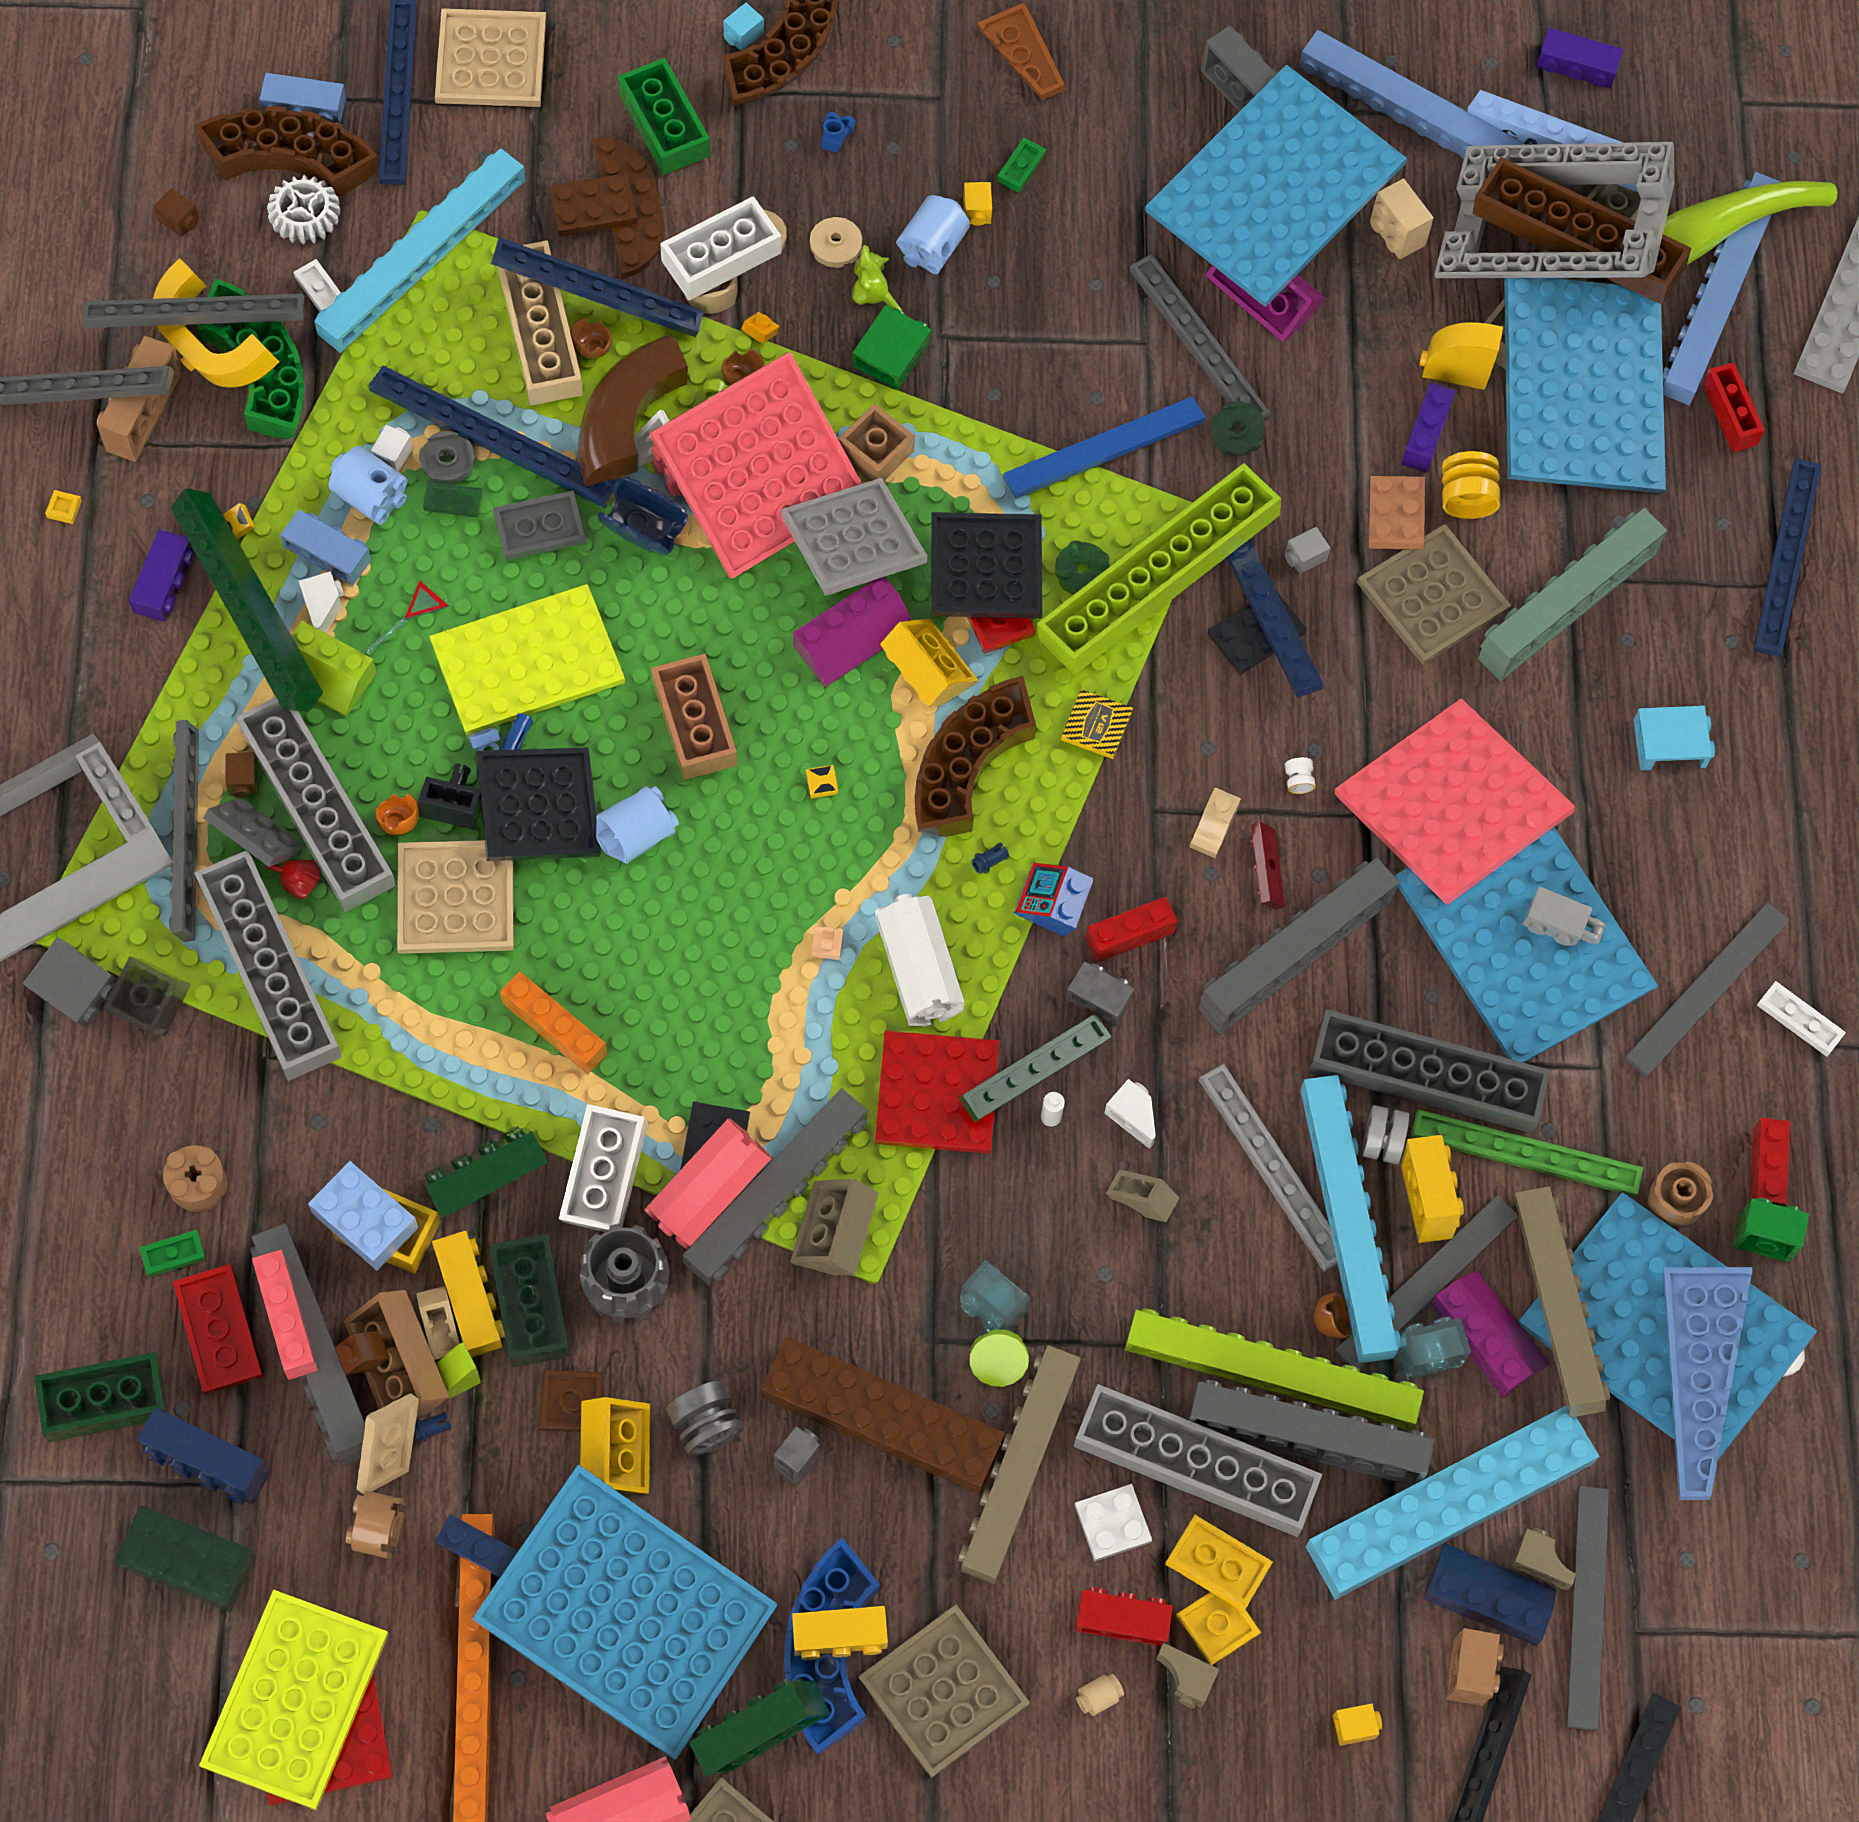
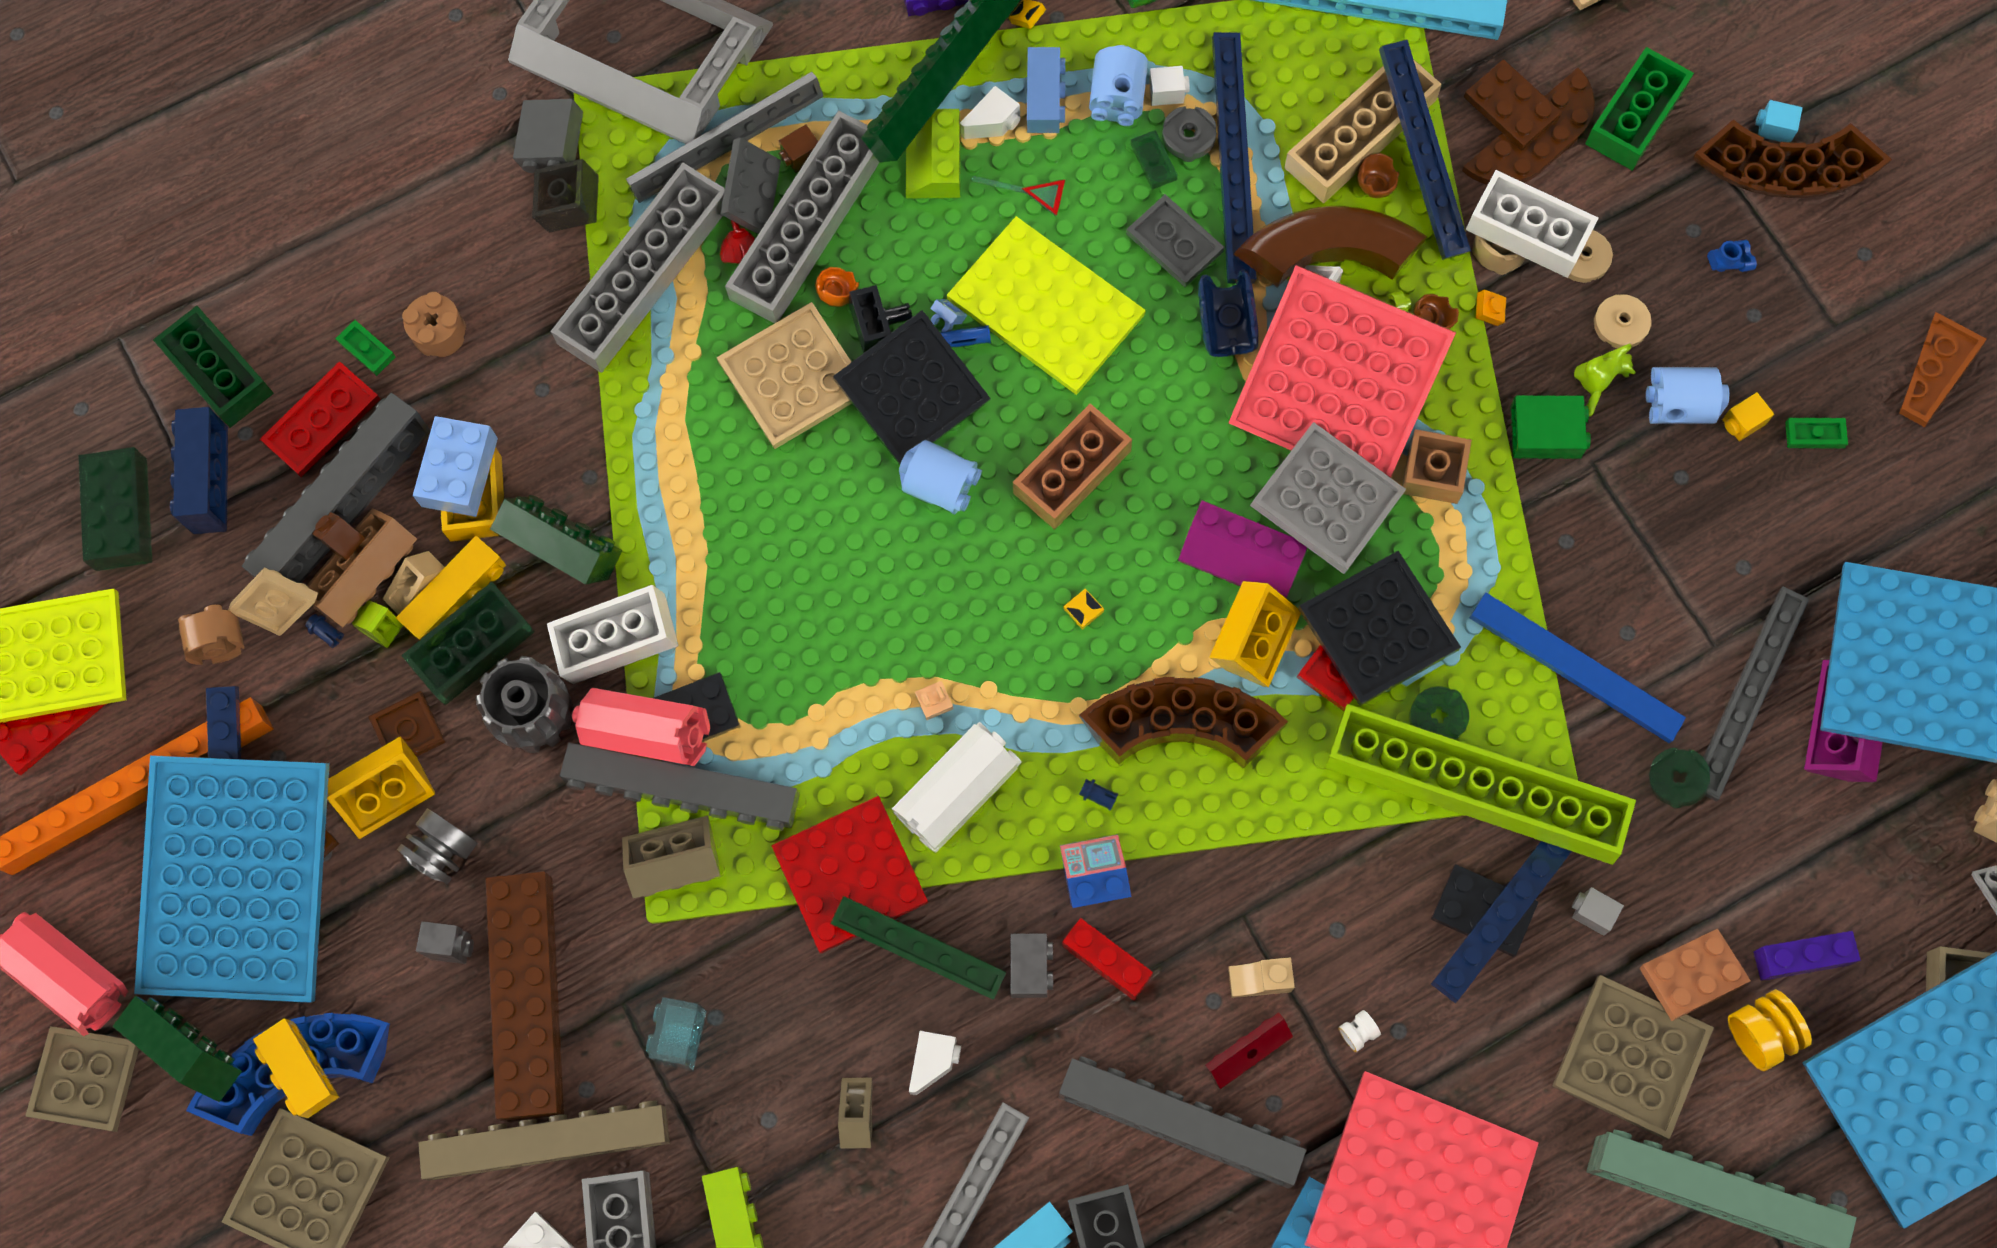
camera: 70 degrees right, 5 degrees up
(284, 1314) = (329, 455): coral brick -> none
(553, 1023) = (722, 518): orange brick -> none
(999, 1358) = (628, 1068): lime tile -> none
(1052, 1109) = (889, 984): white cylinder -> none
(1096, 724) = (1291, 815): tile -> none
(1462, 354) = (1904, 945): yellow brick -> none

